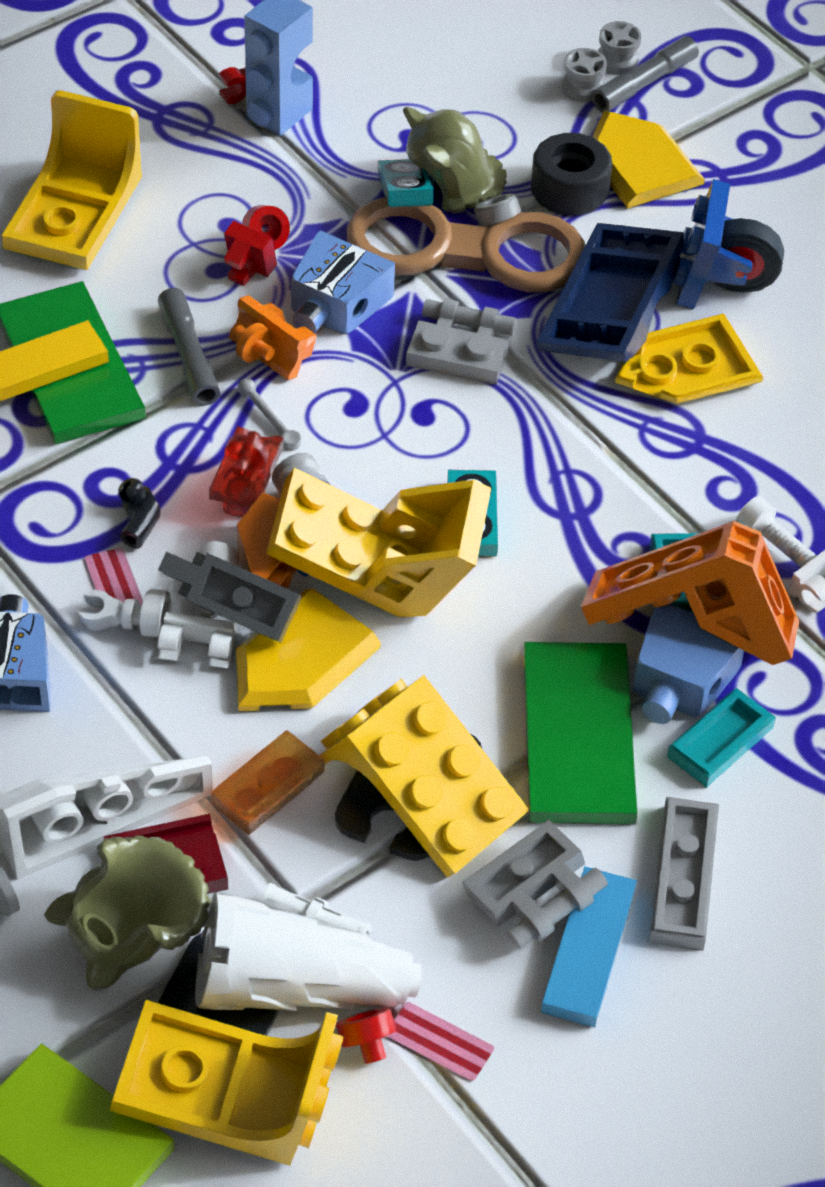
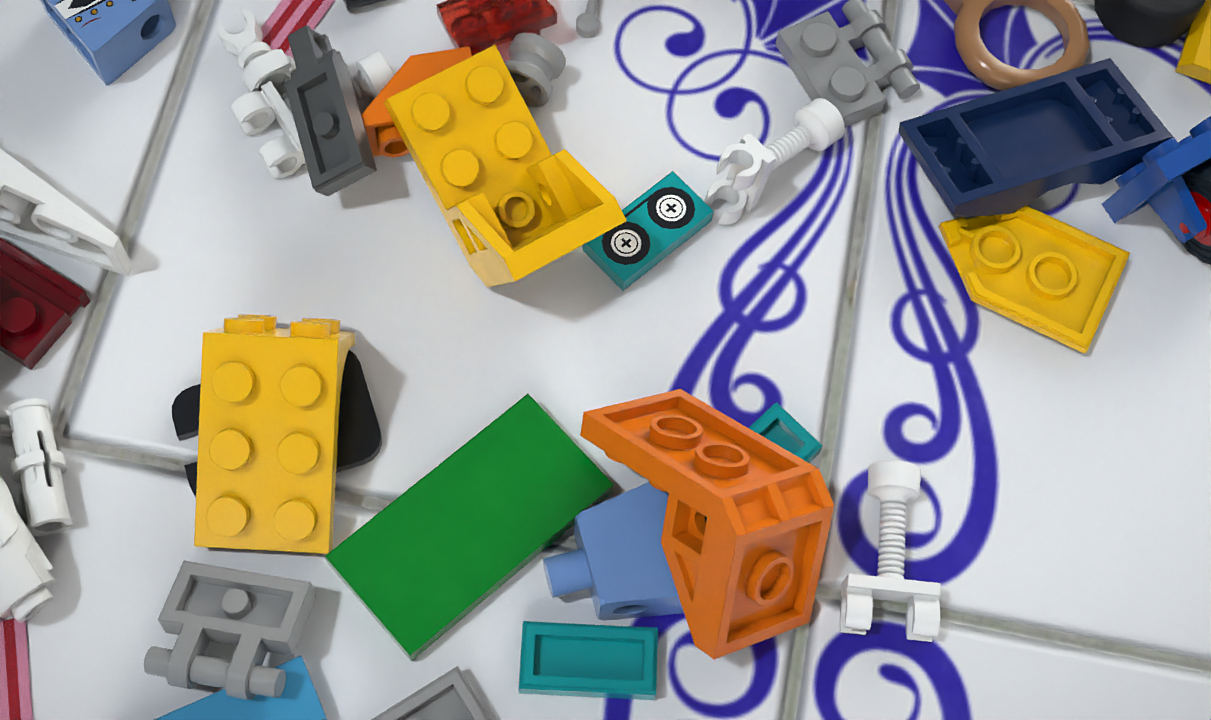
camera: 45 degrees right, 15 degrees up
(267, 782) = (158, 307): clear orange plate -> none
(311, 661) = (352, 234): yellow tile -> none
(492, 385) = (815, 127): none -> white bar

